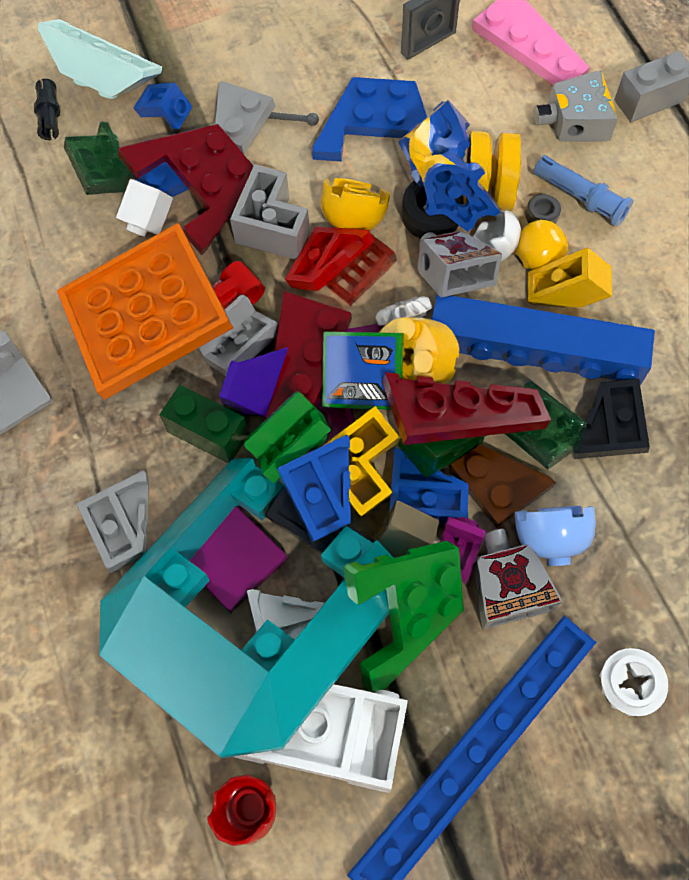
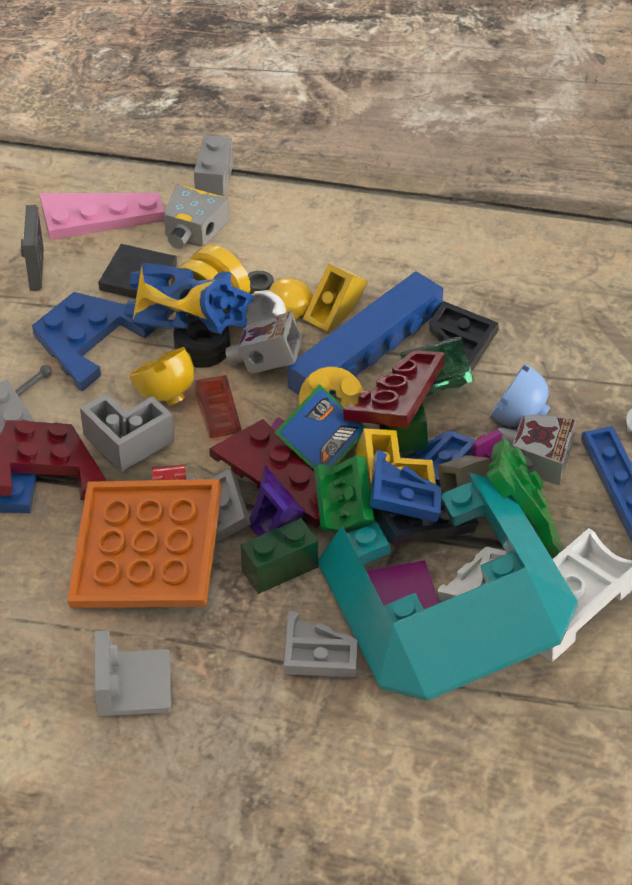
camera: 60 degrees left, 20 degrees down
(144, 208) = (43, 506): white brick -> none
(242, 810) = (601, 665): red hair -> none
(326, 255) = (194, 416): red wing -> none
(413, 307) = (283, 395): white gear -> none
(485, 107) = (129, 260): none -> black tile
(499, 483) = (462, 414): reddish brown wing -> none
(595, 196) = (276, 248): medium blue pin -> none

